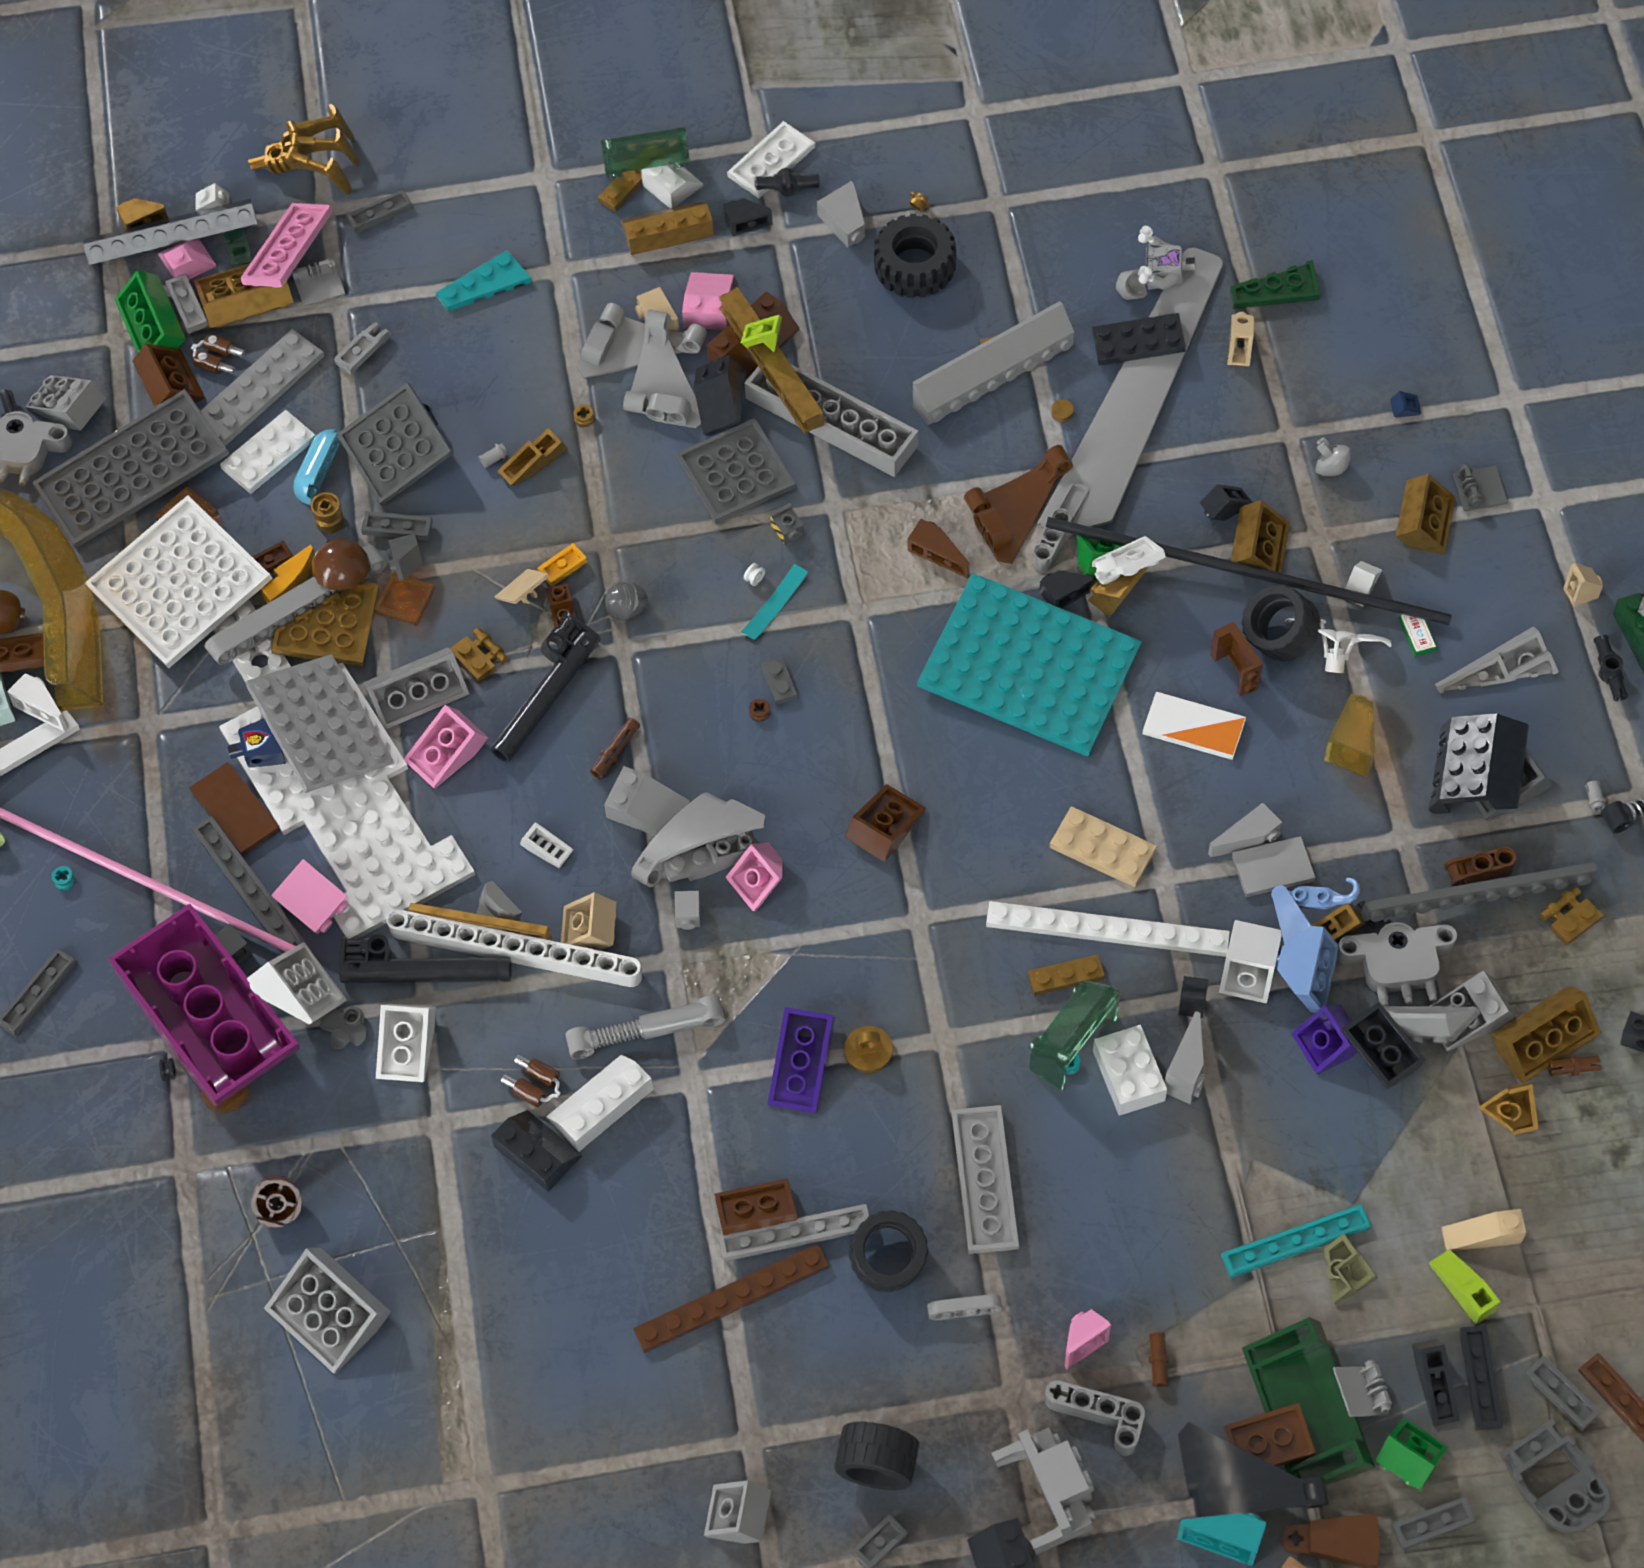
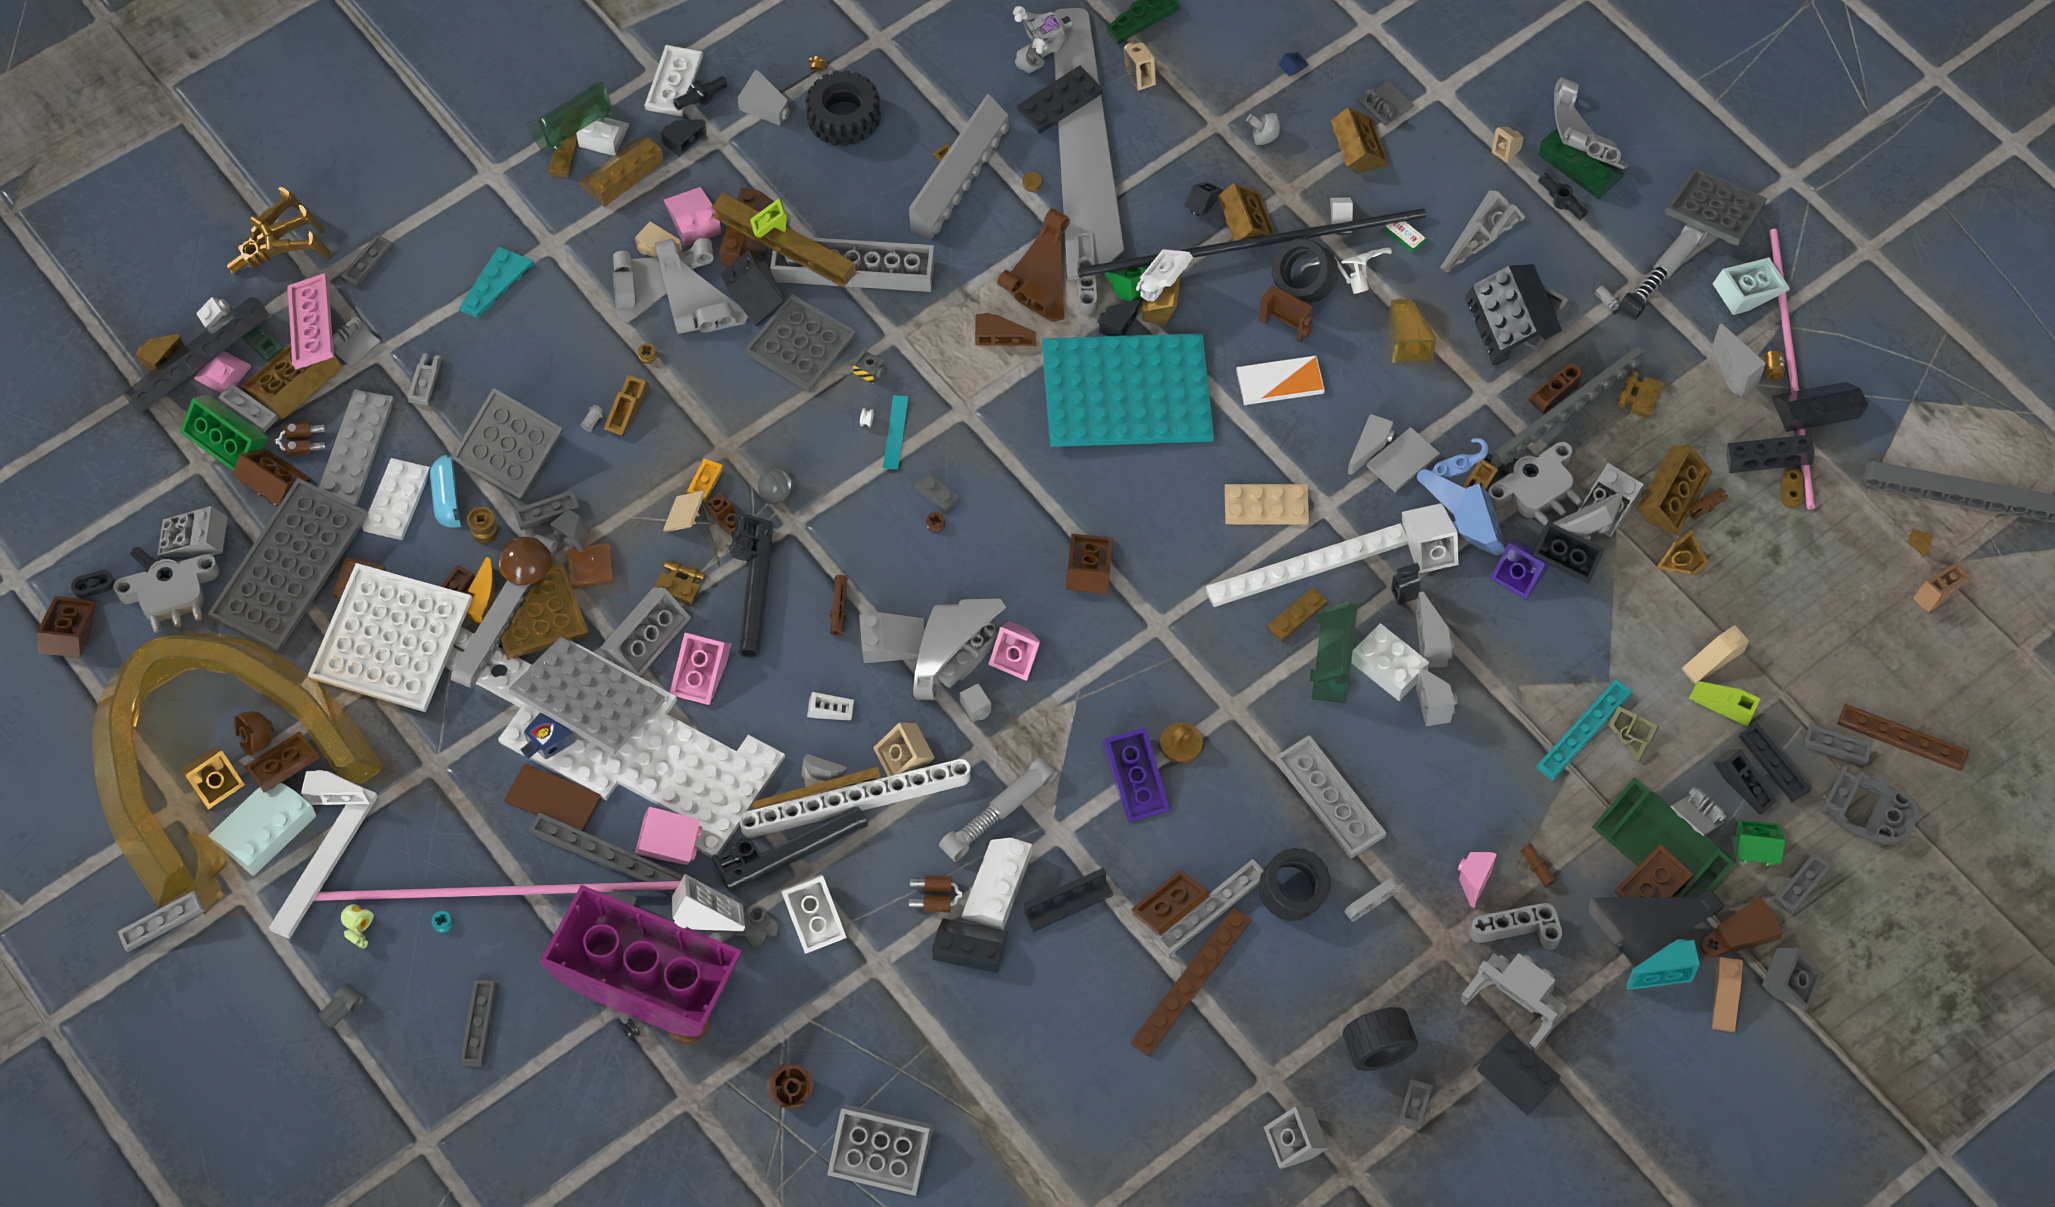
camera: 30 degrees left, 0 degrees up
(658, 1152) = (1067, 900): none -> black fence
(1151, 1134) = (1435, 698): none -> light grey slope

